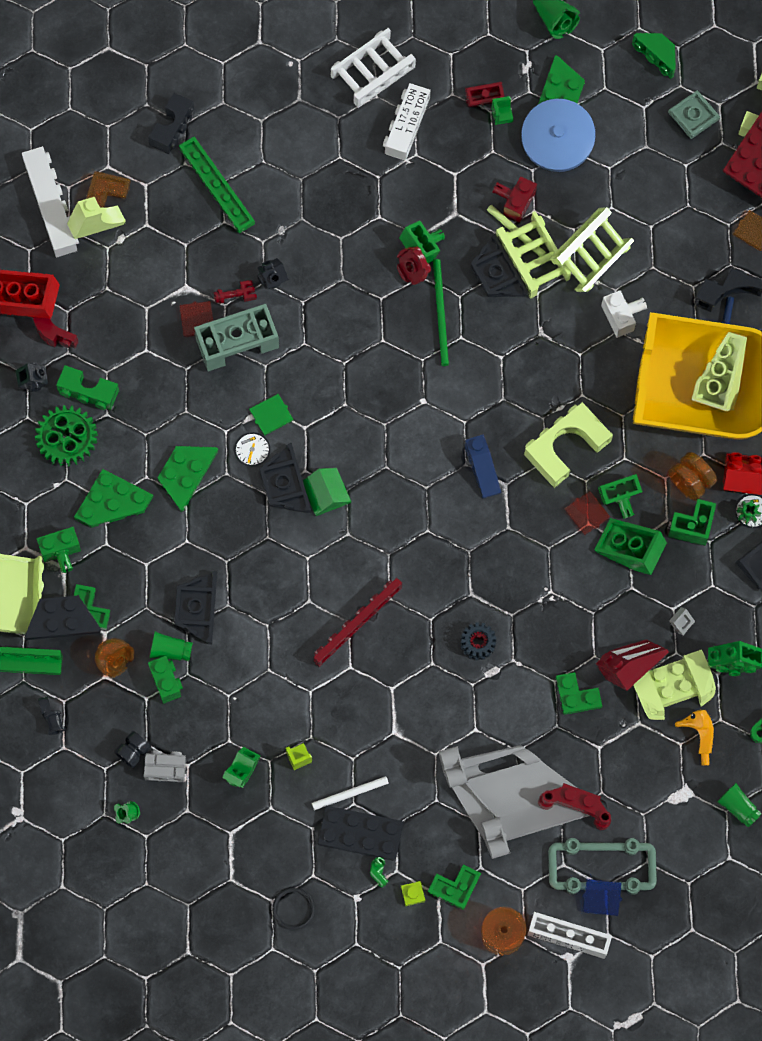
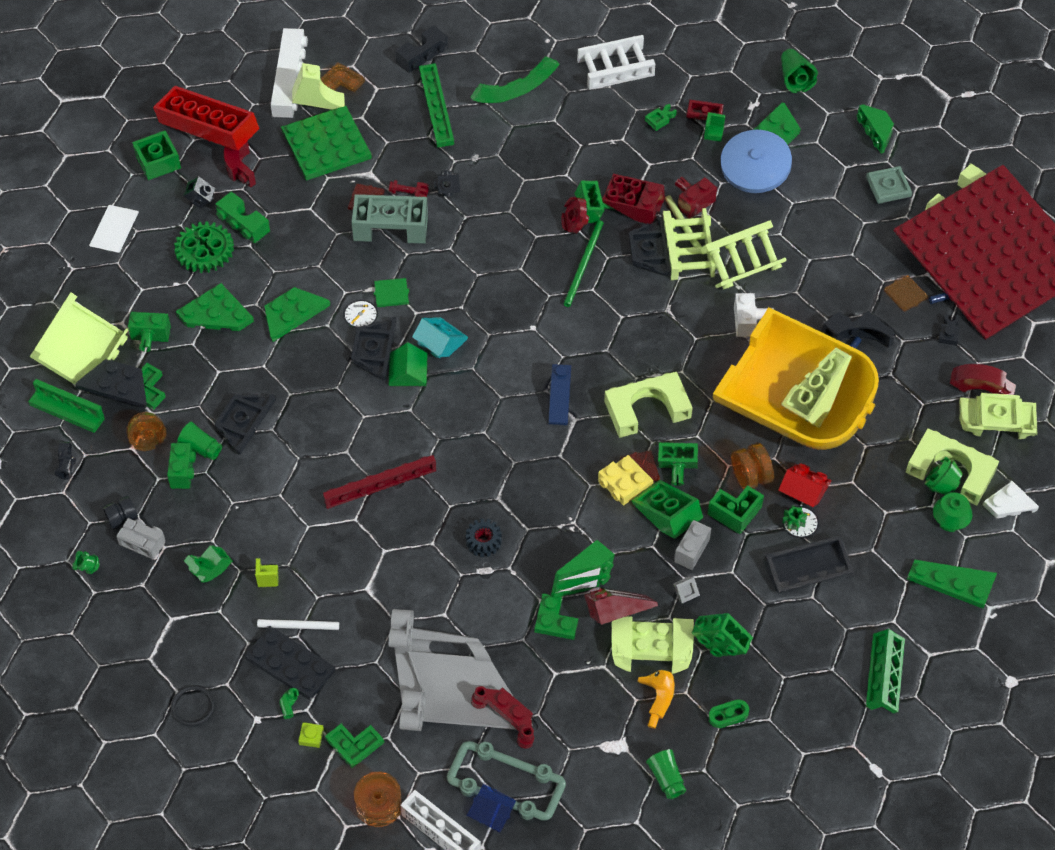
camera: 25 degrees right, 15 degrees down
(126, 269) = (326, 142): none -> green plate
(273, 149) = (516, 88): none -> green tile
(342, 447) = (438, 336): none -> teal slope
(407, 121) = (625, 110): white brick -> none
(443, 118) = (659, 118): none -> green plate
(460, 222) = (635, 198): none -> dark red slope
(579, 531) = (624, 479): none -> light yellow plate
(592, 637) = (584, 571): none -> green slope
(669, 575) = (692, 545): none -> light grey brick

